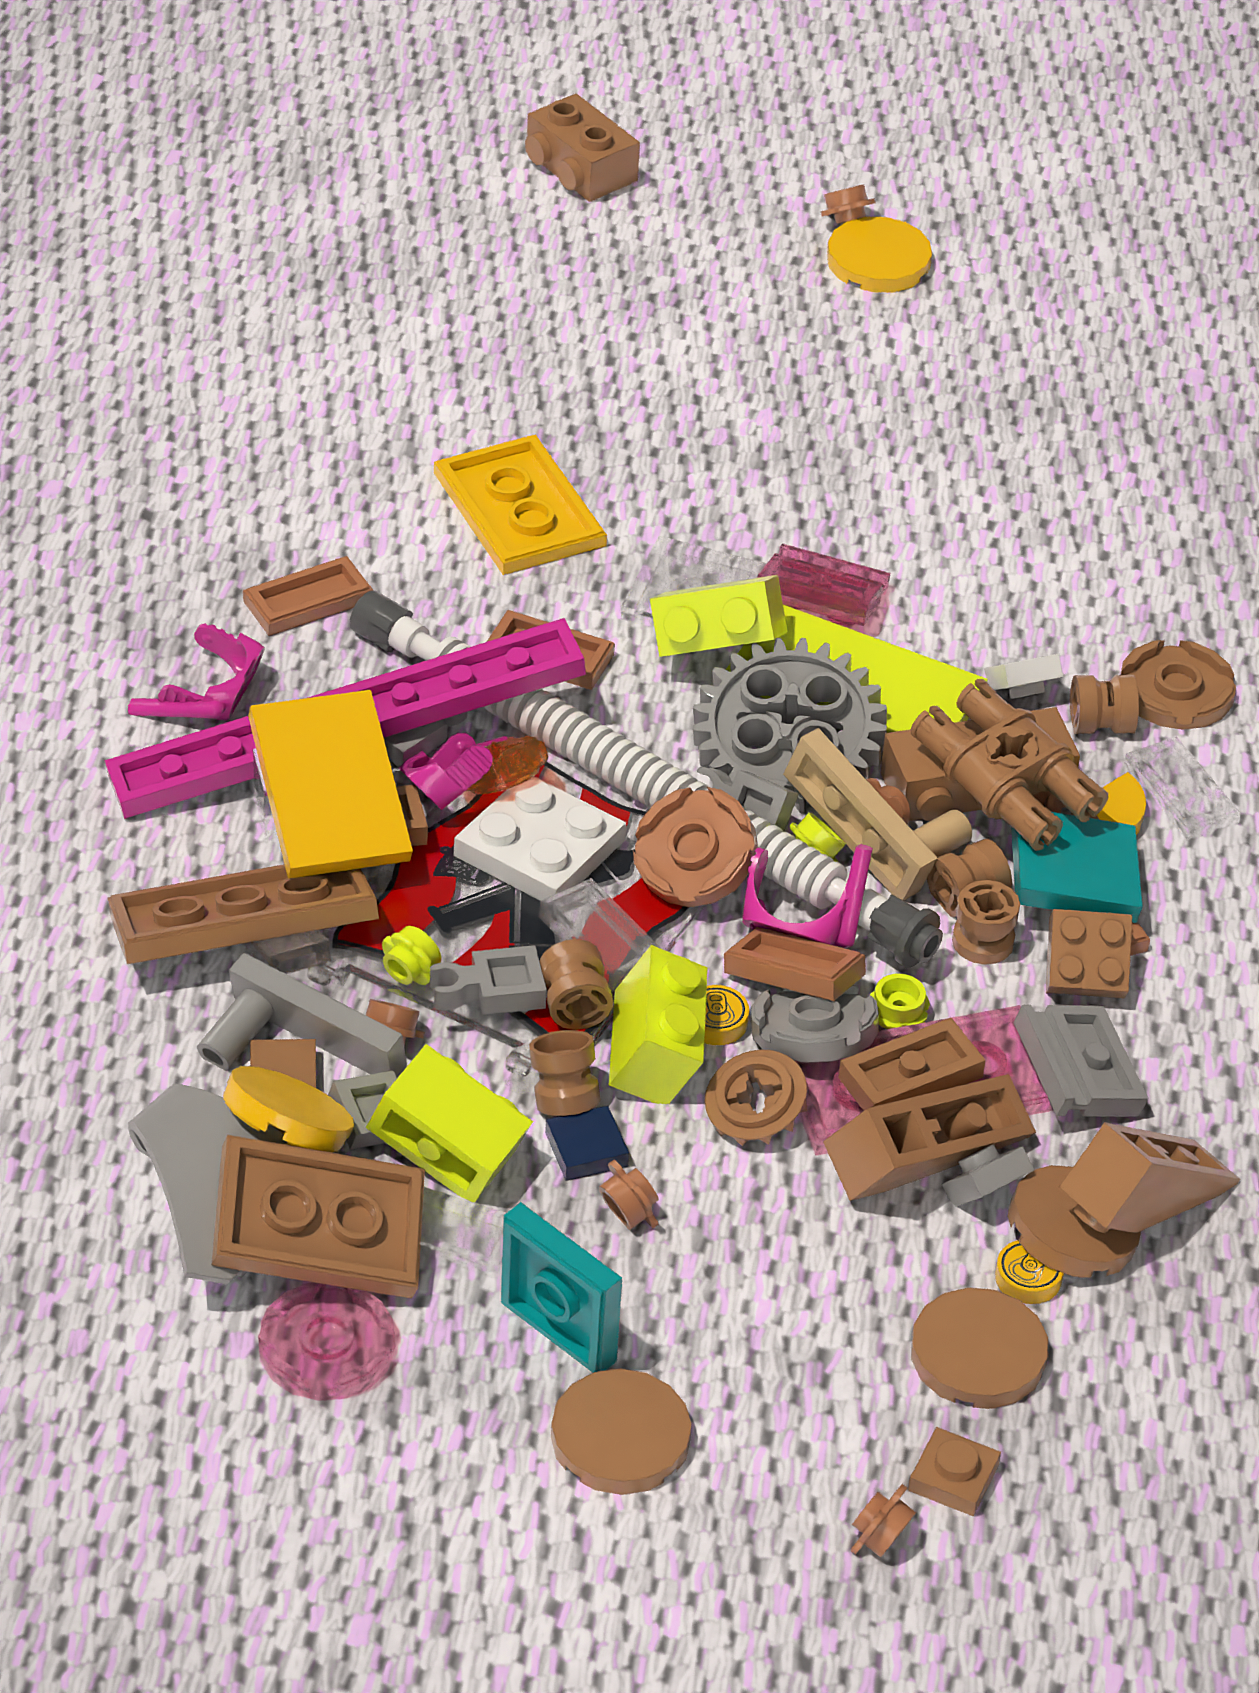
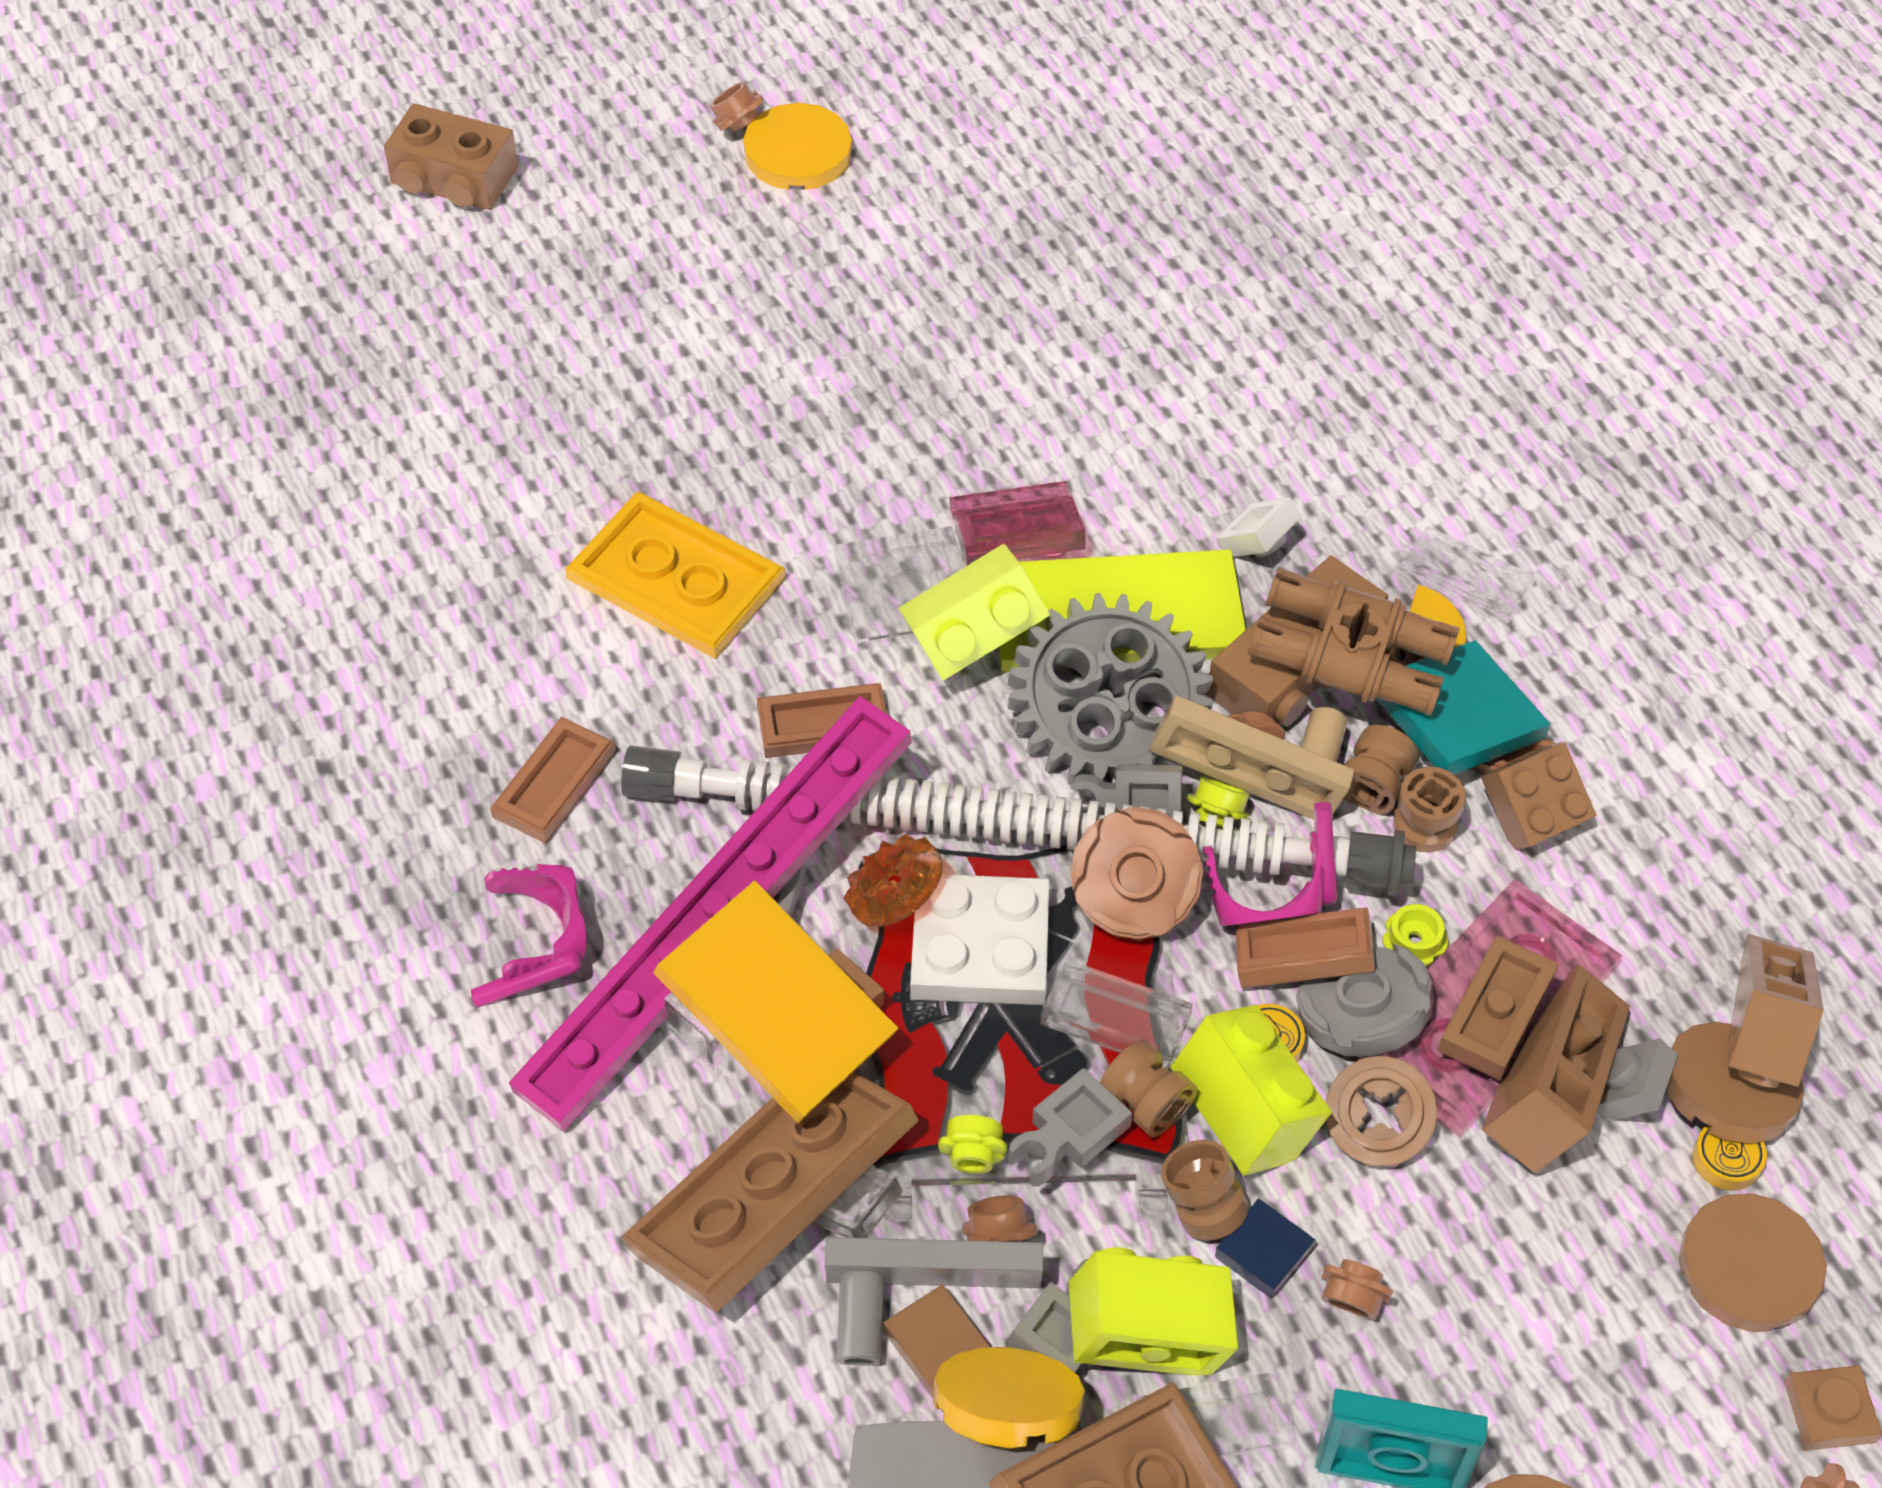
camera: 30 degrees left, 10 degrees up
(450, 769) = (823, 910): dark pink helmet -> none
(1081, 1061) = (1613, 910): light grey plate -> none
(1104, 704) = (1352, 523): medium nougat wheel -> none
(1176, 698) = (1380, 486): medium nougat tile -> none

